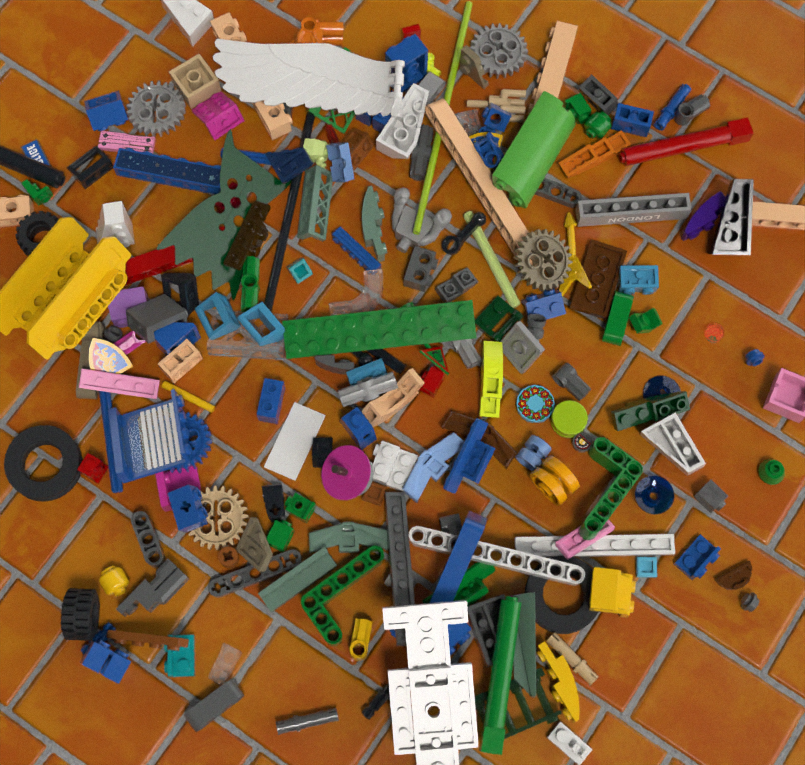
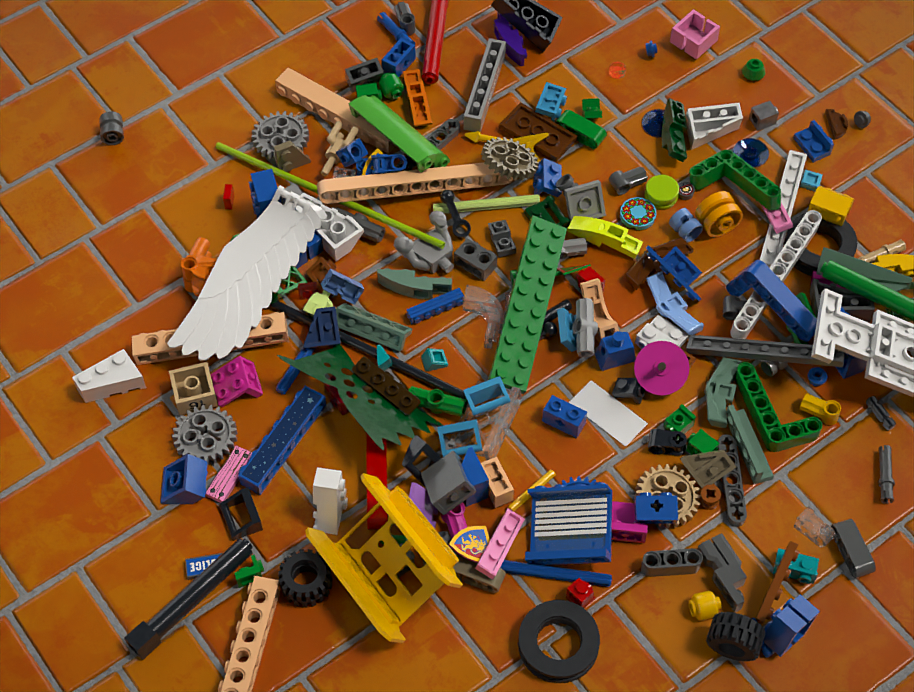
camera: 70 degrees left, 15 degrees down
(276, 222) = (383, 358): none -> teal slope
(328, 363) = (545, 355): dark grey slope -> none

